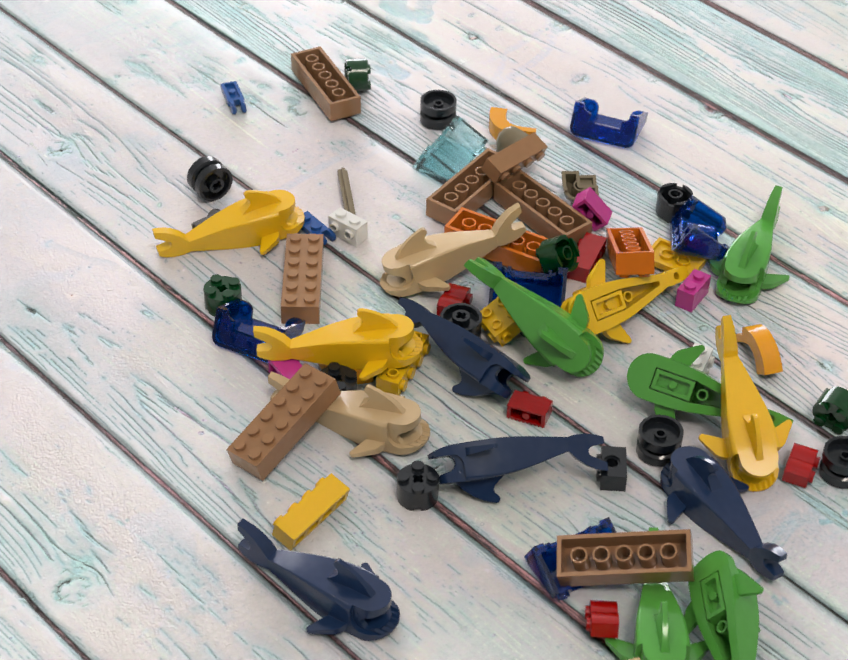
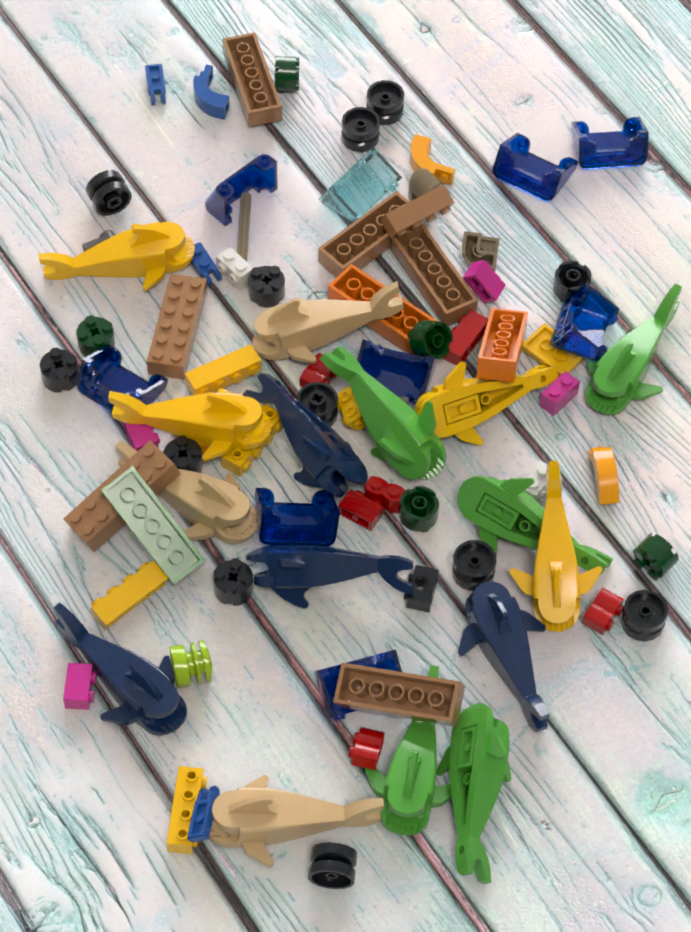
camera: 10 degrees right, 15 degrees up
(192, 326) = (59, 370): none -> black brick
(276, 603) = (78, 686): none -> dark pink brick
(286, 103) = (209, 102): none -> blue arch
(324, 437) = (152, 525): none -> brick
(348, 152) = (257, 174): none -> clear blue windscreen
(375, 298) = (224, 371): none -> yellow brick
(381, 235) = (266, 286): none -> black brick
(395, 563) = (191, 664): none -> lime wheel
(458, 83) = (386, 100): none -> black wheel
(491, 420) = (296, 522): none -> clear blue windscreen
(554, 389) = (386, 493): none -> red brick
(588, 399) = (419, 509): none -> dark green brick
(689, 100) = (611, 148): none -> clear blue windscreen

